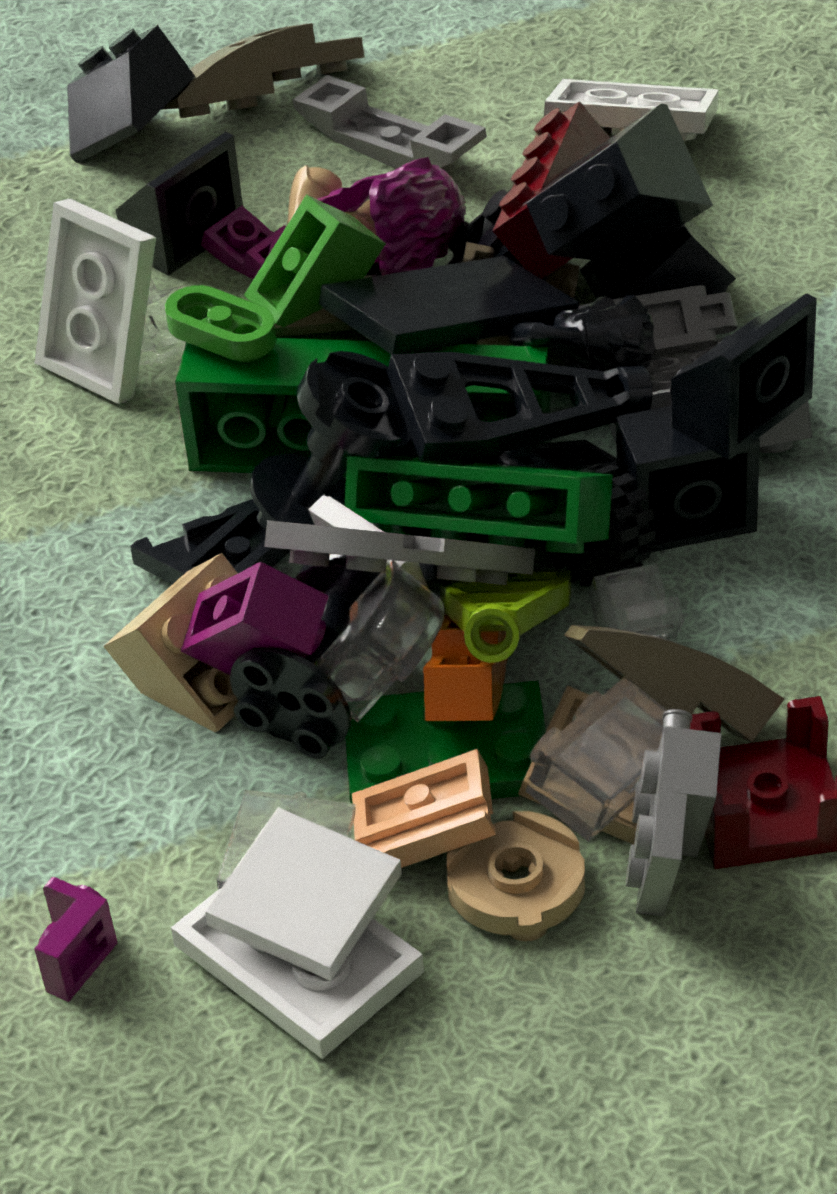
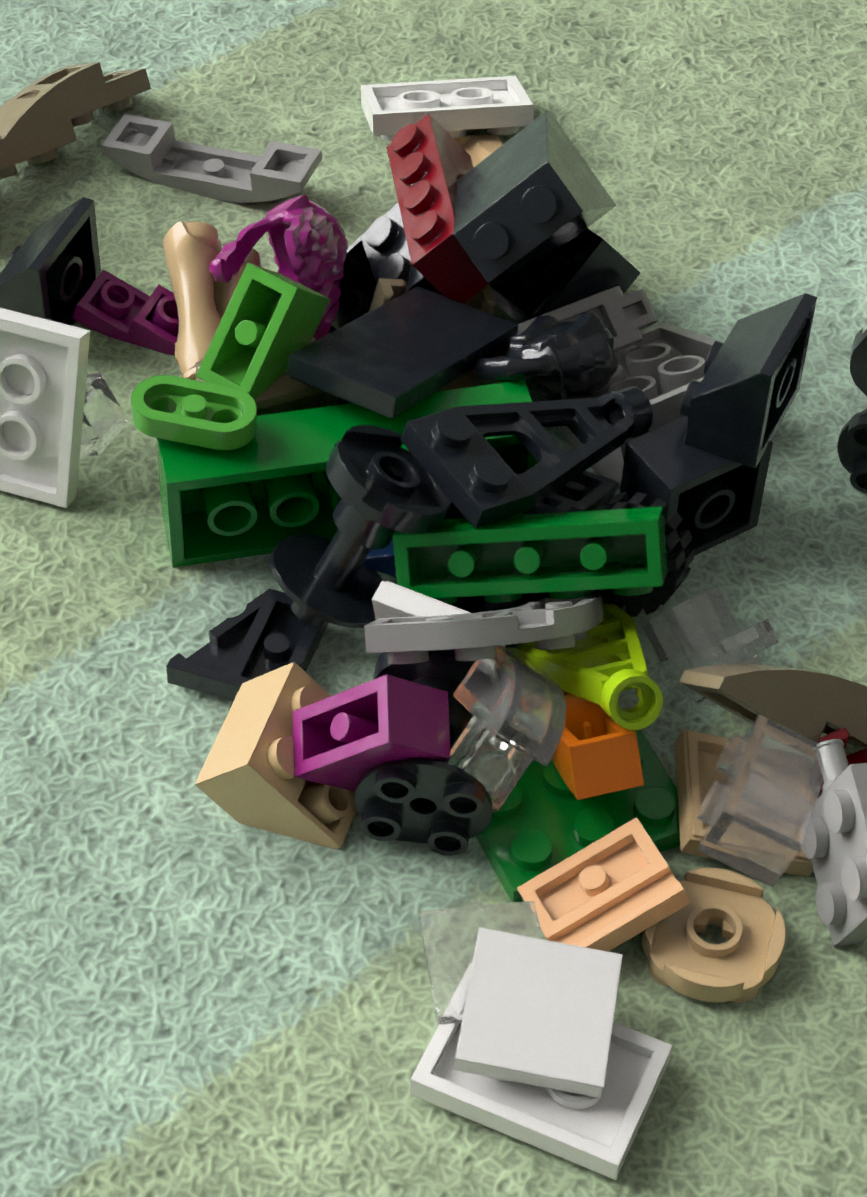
camera: 25 degrees left, 5 degrees up
(75, 939) = (316, 1111): magenta bracket -> none

